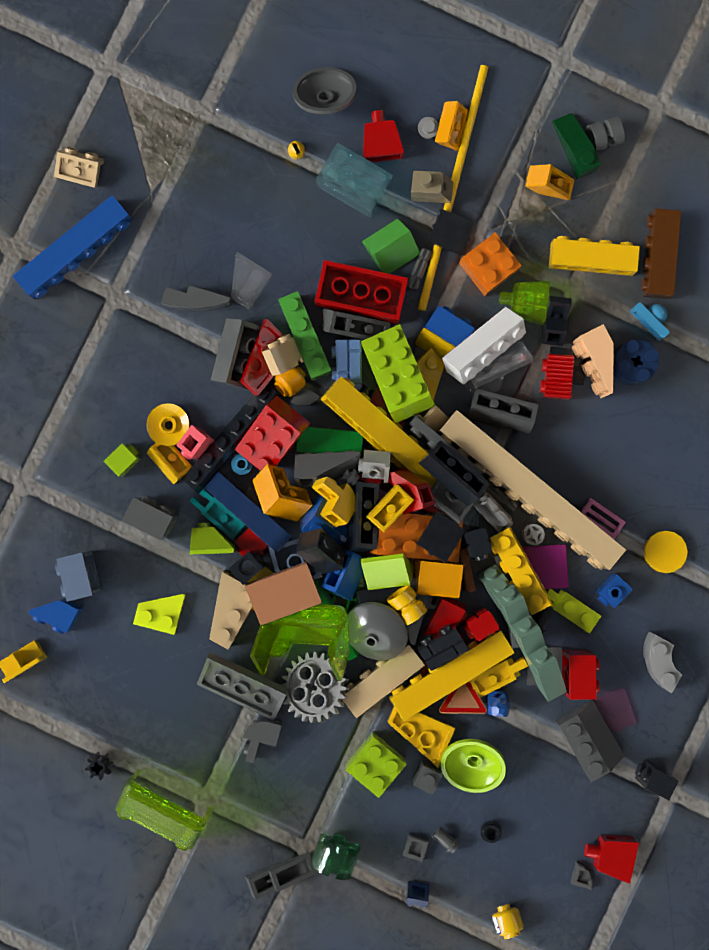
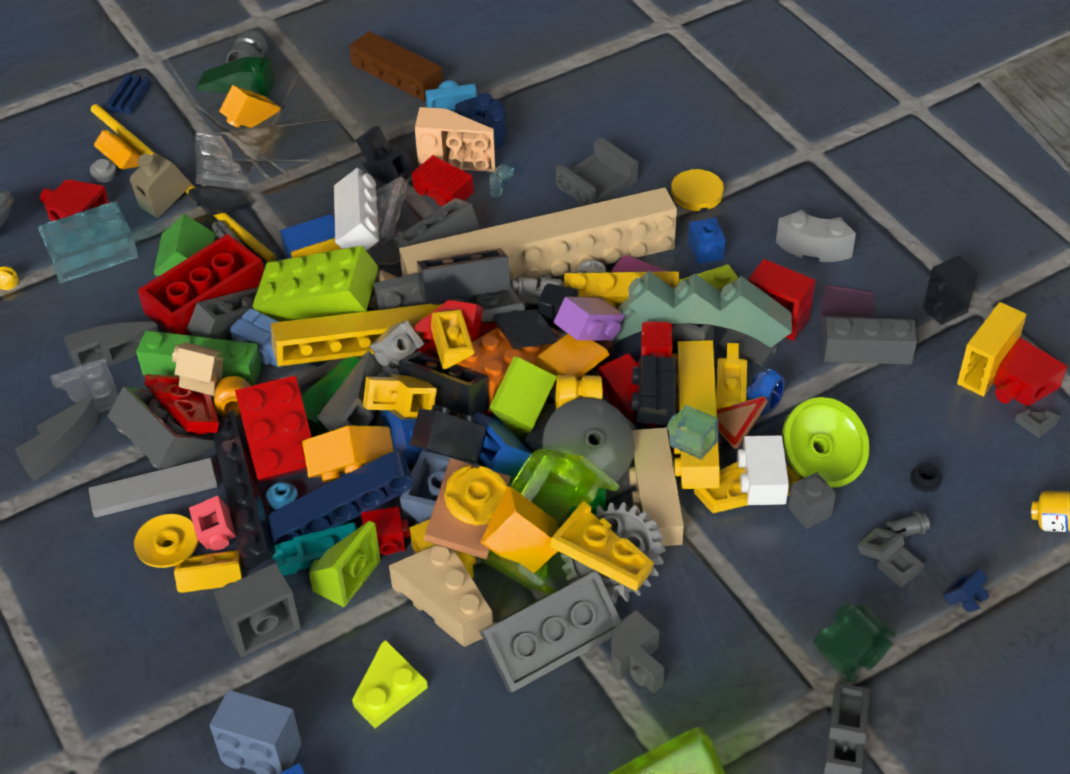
camera: 50 degrees left, 40 degrees down
(122, 459) = (160, 613): lime brick -> none
(201, 383) = (152, 487): none -> light grey tile
(240, 573) = (405, 529): black brick -> none
(282, 267) = (111, 341): none -> dark grey slope
(289, 635) = (521, 531): none -> light orange slope
(290, 596) = (474, 494): none -> yellow tile
(301, 686) = (599, 548): none -> yellow wing
(375, 764) = (759, 544): lime brick -> none
(416, 694) = (693, 432): none -> clear light blue brick
(421, 831) = (881, 544): none -> dark grey tile
(425, 742) = (764, 470): none -> white brick
(473, 572) = (589, 318): none -> medium lavender brick
(477, 206) = (215, 164): none -> clear wing
(490, 264) = (280, 181): orange brick -> none
(496, 83) = (124, 94): none -> dark blue tile
(528, 300) = (340, 163): clear neon green torso -> none
(590, 407) = (495, 180): none -> clear light blue arm
(594, 256) = (350, 110): yellow brick -> none
(617, 830) = (990, 347): none -> yellow brick
(634, 476) = (598, 176): none -> dark grey panel

